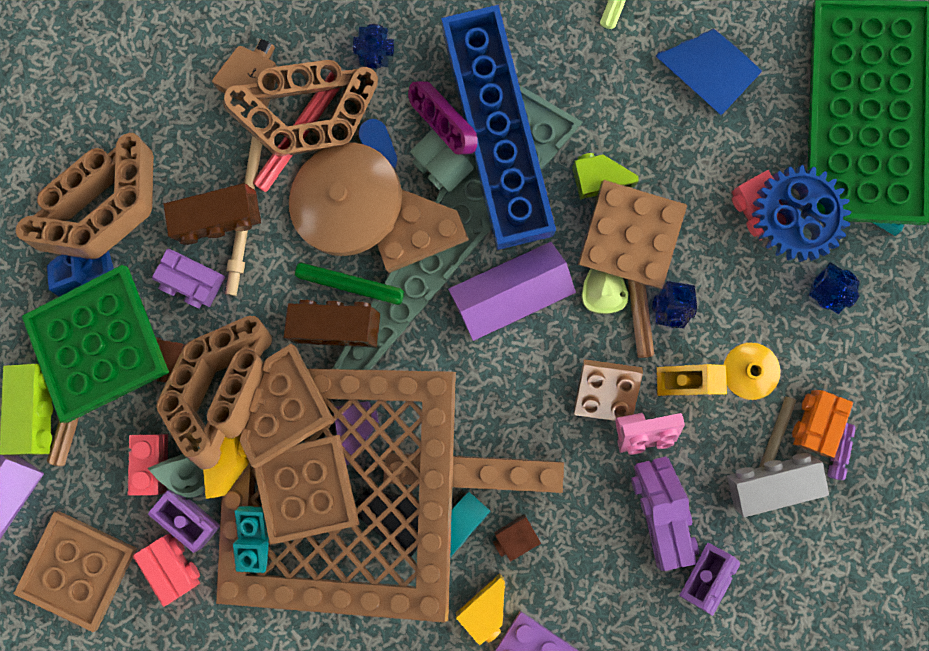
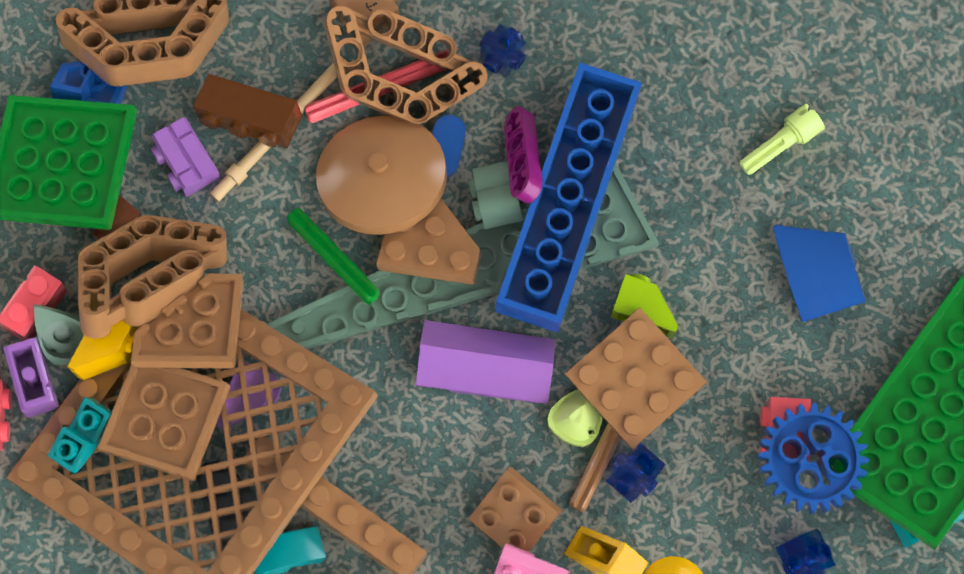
camera: 30 degrees right, 10 degrees down
(332, 324) = (291, 283): reddish brown brick -> none

